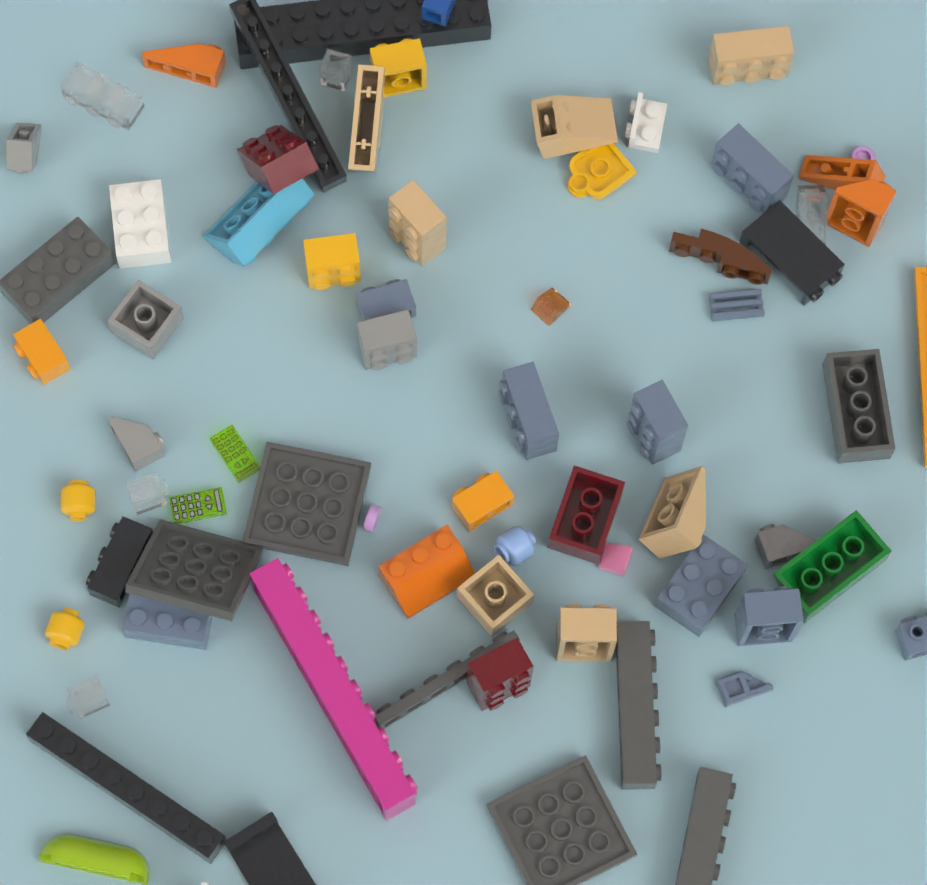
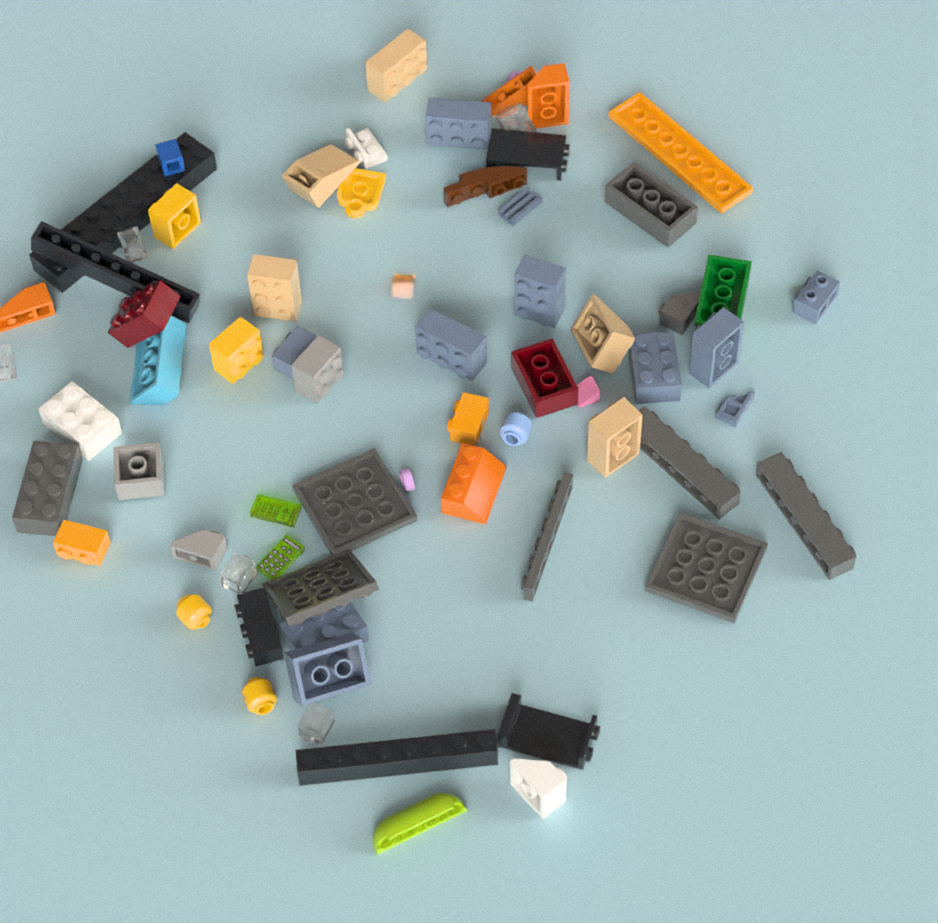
camera: 35 degrees left, 15 degrees down
(132, 656) = (327, 668): none -> sand blue brick
(332, 689) = (482, 591): dark pink brick -> none
(367, 118) = (183, 250): tan brick -> none
(495, 595) = (532, 463): tan brick -> none
(500, 675) = (583, 499): dark red brick -> none

